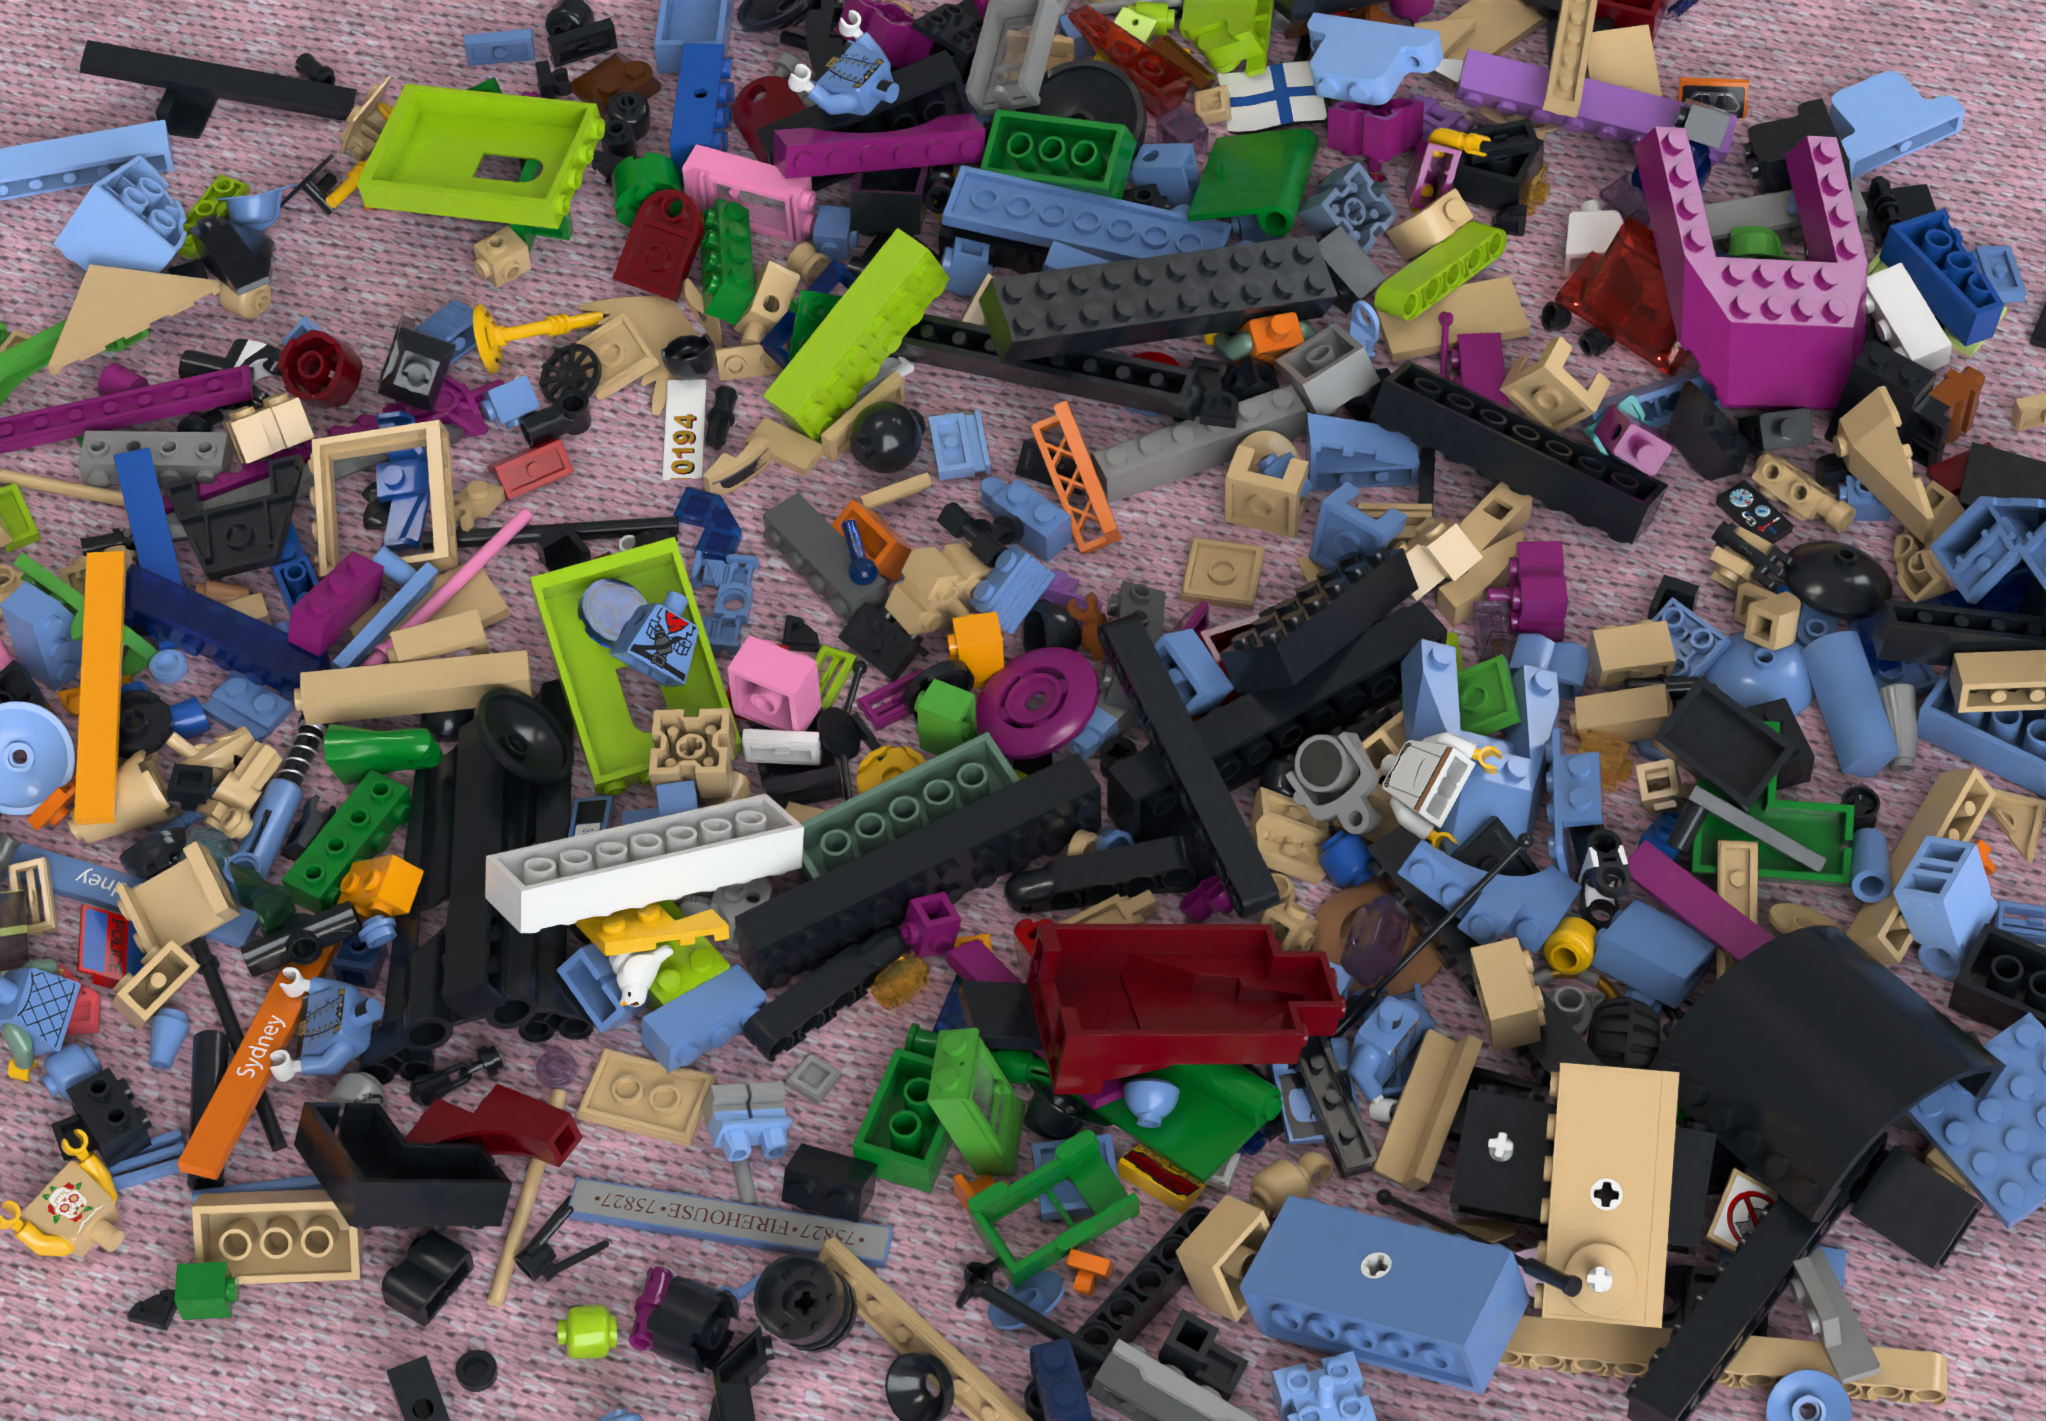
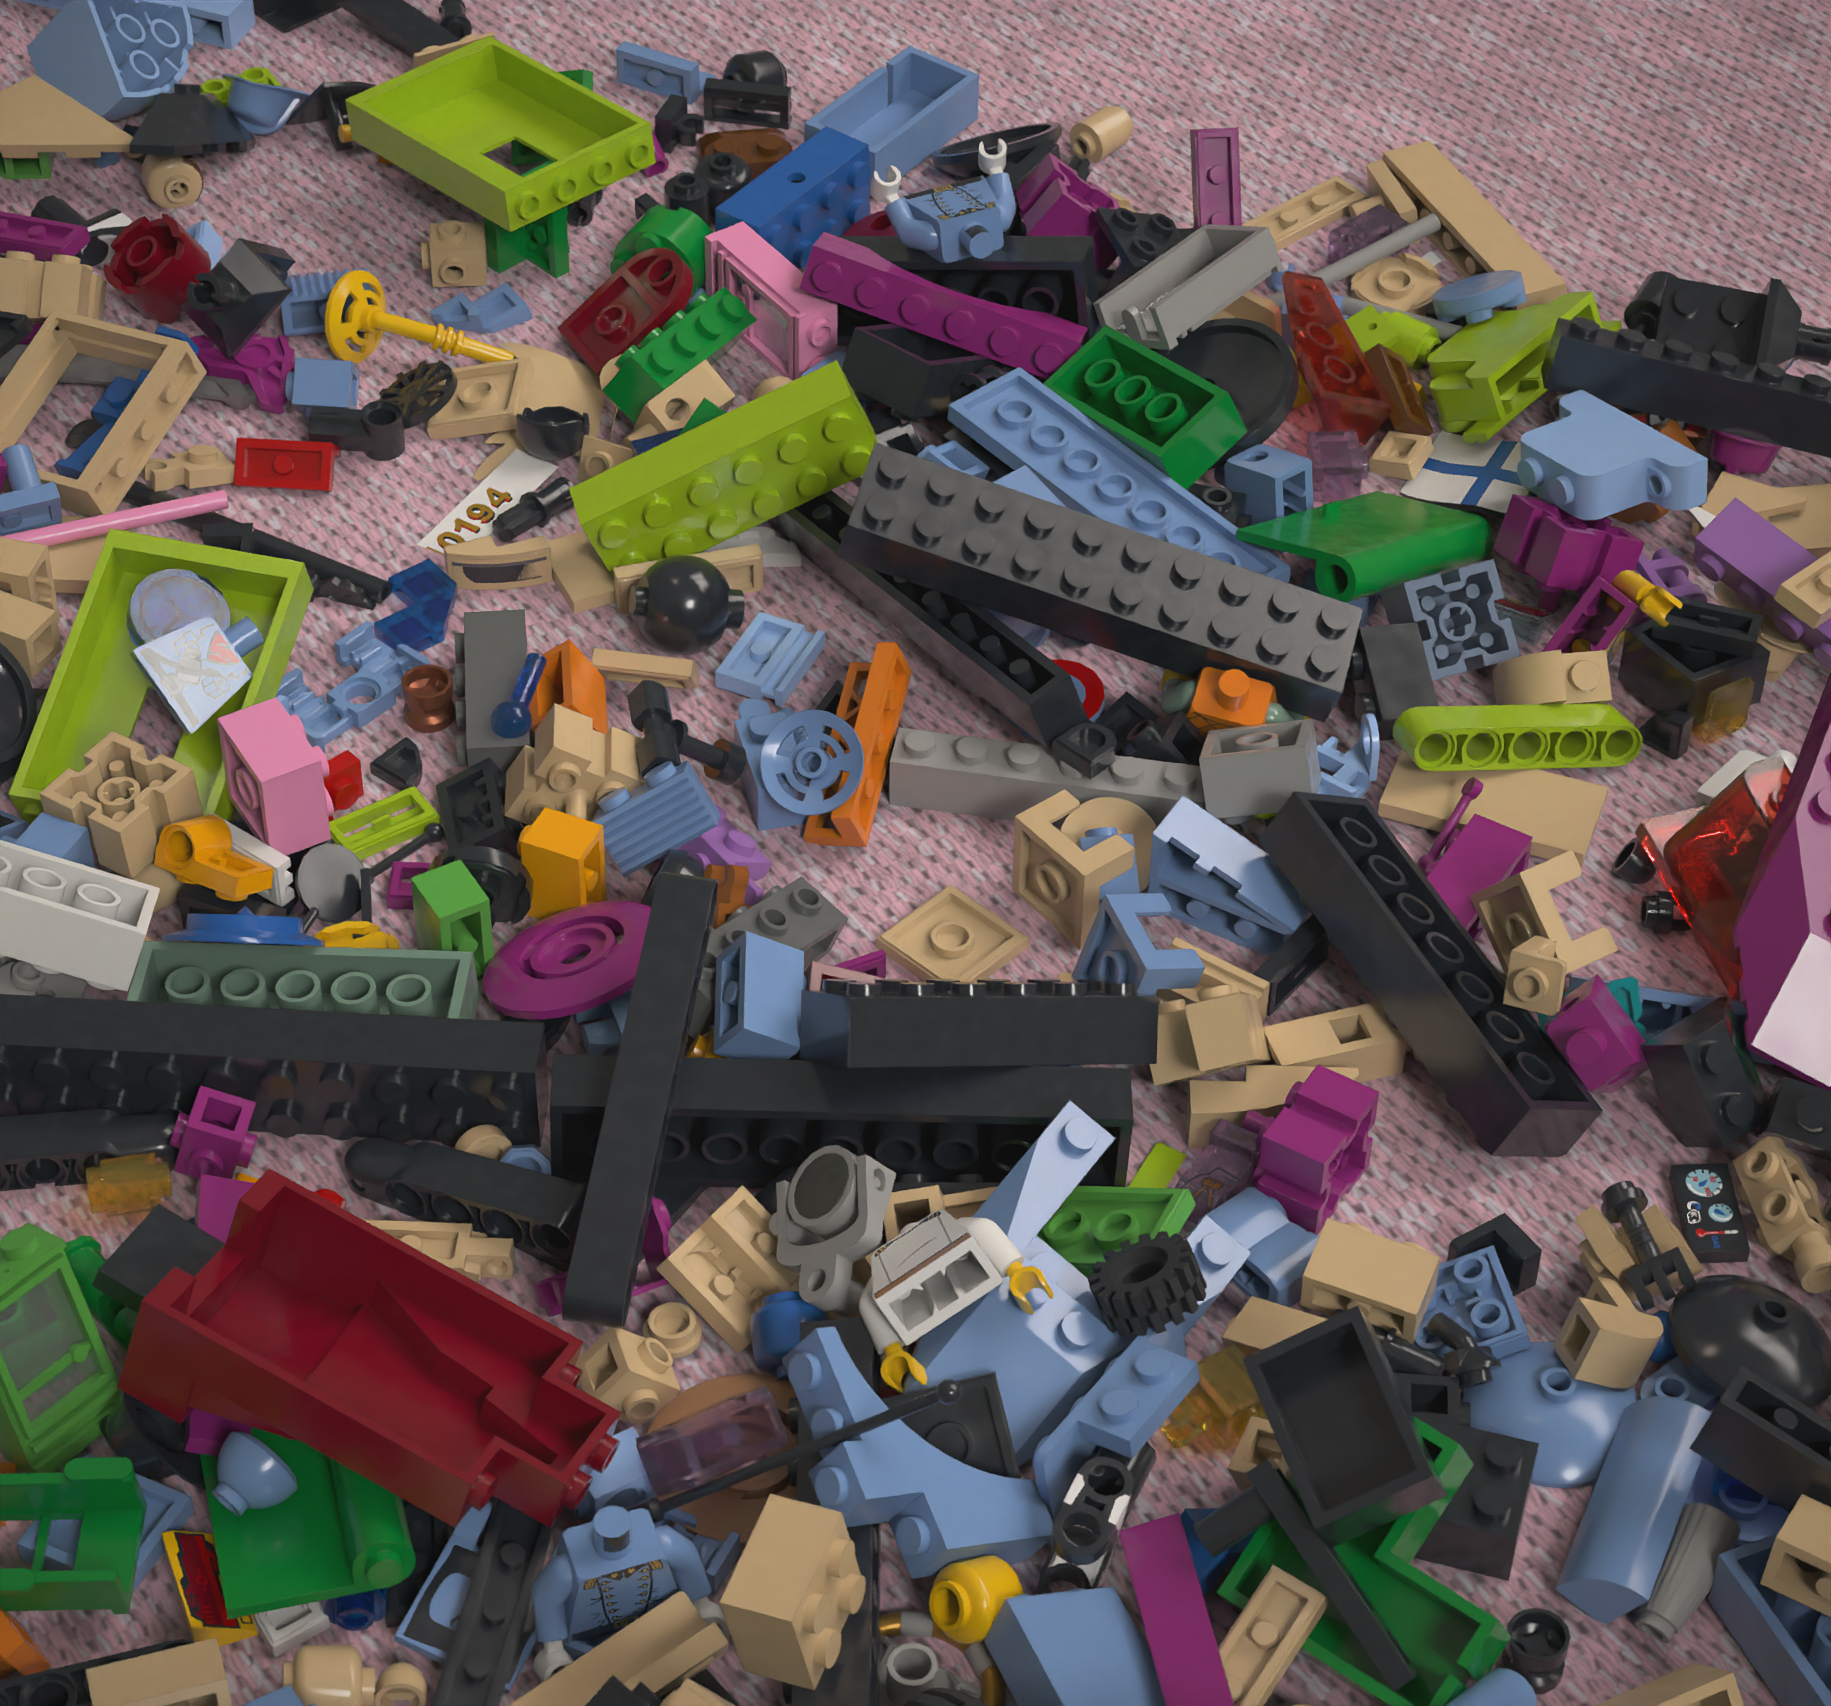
camera: 30 degrees right, 10 degrees down
(552, 289) = (487, 314): none -> medium blue slope
(777, 762) = (202, 854): none -> light orange plate
(780, 582) = (428, 698): none -> copper wheel
(842, 793) = (244, 929): none -> blue piece
(1069, 502) = (811, 761): none -> medium blue dish
(1527, 708) = (1147, 1284): none -> black tyre
(1589, 425) = (1535, 977): none -> tan bracket
(1710, 669) = (1468, 1360): none -> black plate

